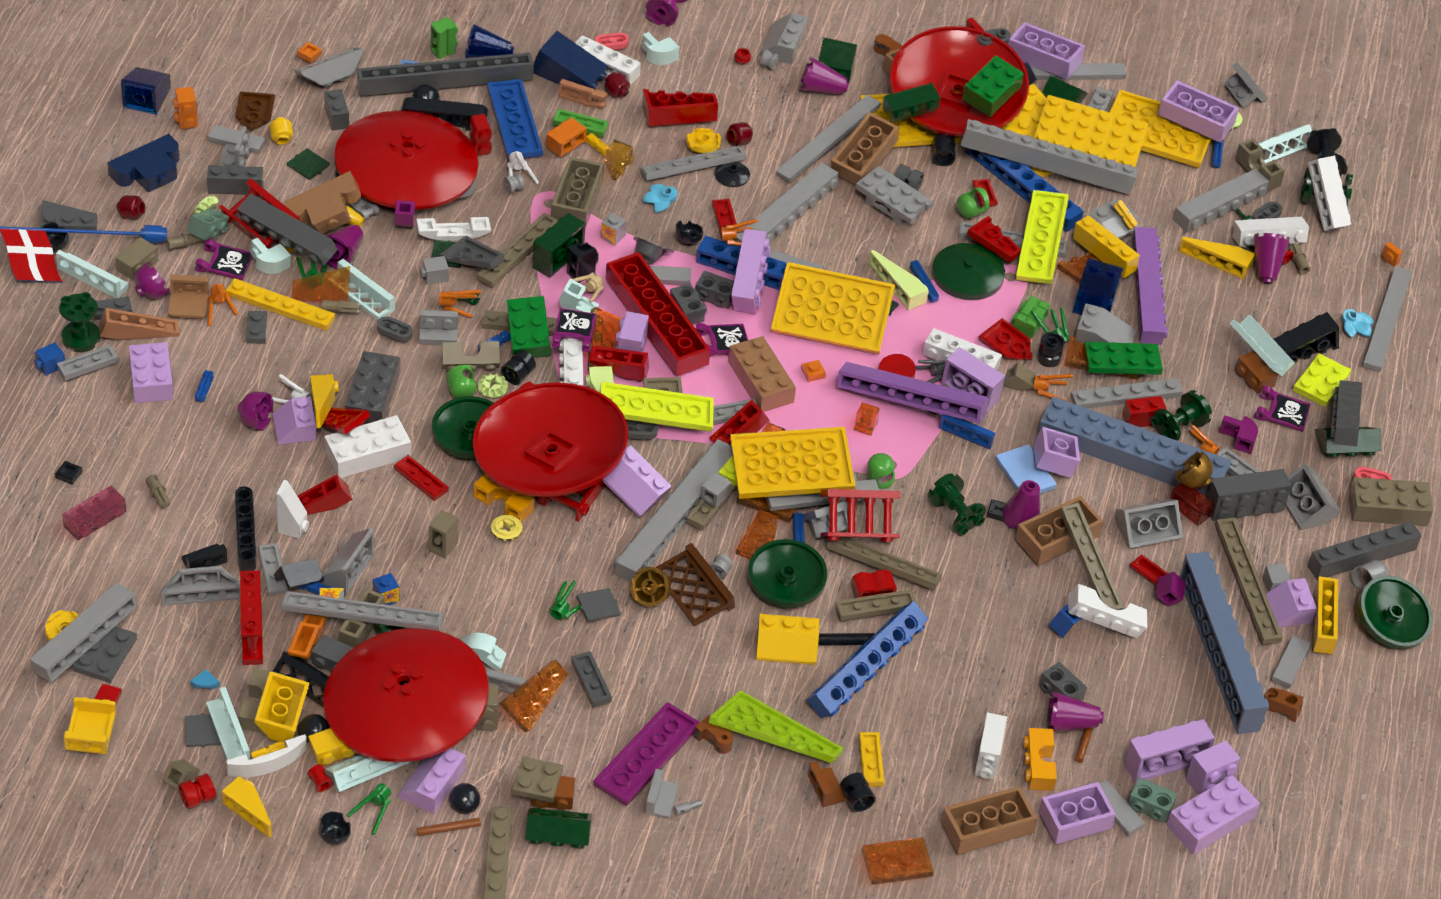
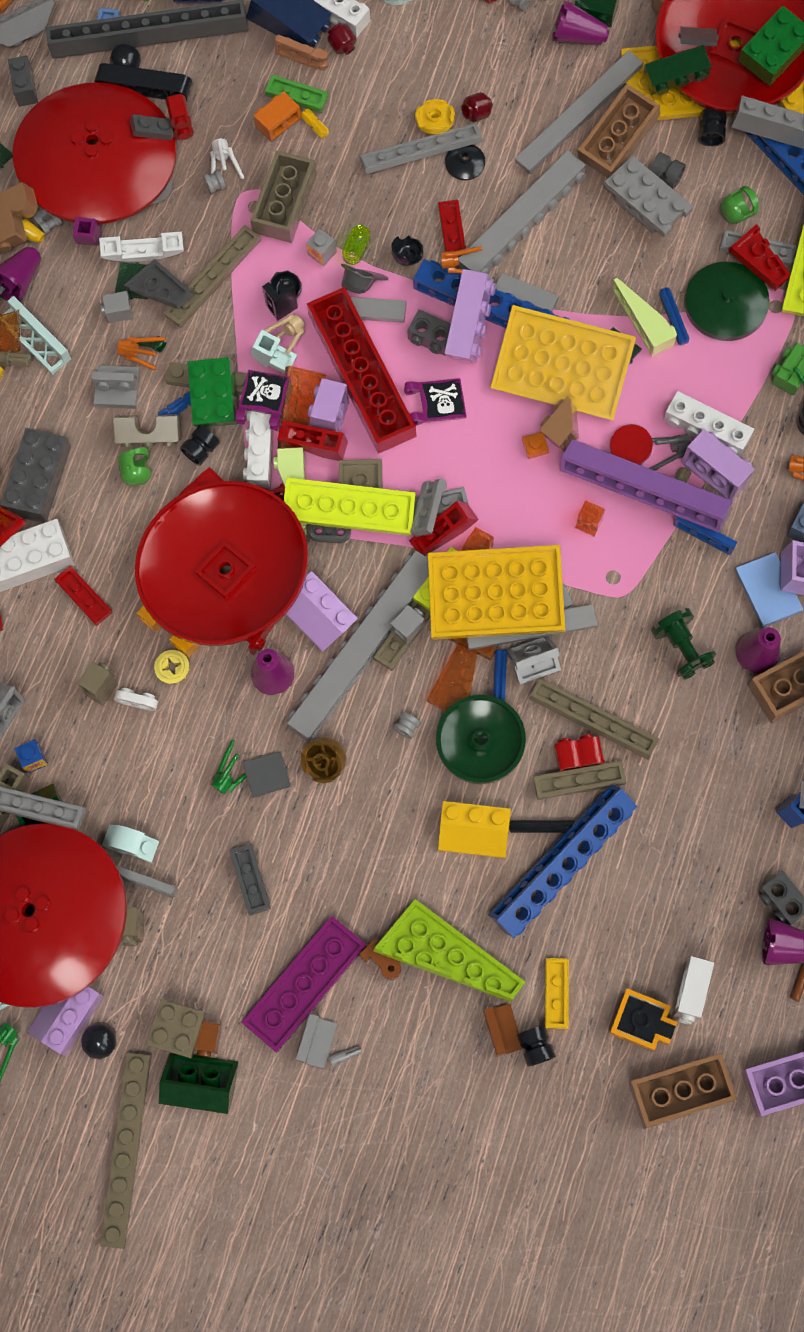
camera: 15 degrees right, 25 degrees up
(394, 329) = (68, 389): dark grey plate -> none
(448, 826) = (79, 1076): dark orange bar -> none
(455, 424) = (123, 525): dark green dish -> none
(458, 139) = (151, 127): none -> dark grey plate
(477, 550) = (128, 697): none -> white plate
(497, 389) = (175, 474): yellowish green gear -> none
(514, 118) = (222, 88): blue plate -> none
(533, 696) = (180, 909): clear orange wing -> none
(551, 248) = (253, 271): dark green brick -> none
(597, 525) = (272, 672): none -> magenta cone
(618, 158) = (335, 143): clear yellow slope -> none
(643, 227) = (356, 246): none -> clear neon green plate
(660, 196) = (377, 197): medium azure plate -> none
(679, 108) = (409, 72): red wedge -> none
(689, 302) = (394, 355): dark grey brick -> none
(709, 578) = (391, 741): reddish brown fence -> none
(725, 408) = (428, 507): none -> light grey plate
(761, 373) = (474, 454): medium nougat brick -> none
(835, 350) = (562, 424): none -> medium nougat slope
(851, 497) = (559, 646): red fence -> none
(880, 466) = (600, 590): bright green helmet -> none
(897, 860) = (574, 1139): clear orange plate -> none
(927, 78) = (698, 36): none -> dark grey piece
(949, 773) = (643, 1021): none -> piece
(986, 185) = (755, 179): red tile -> none
(995, 510) = (729, 644): tile -> none
(1007, 340) = (764, 402): red tile -> none
(1019, 377) = (773, 456): dark tan brick -> none
(1040, 773) = (746, 1022): light orange arch -> none

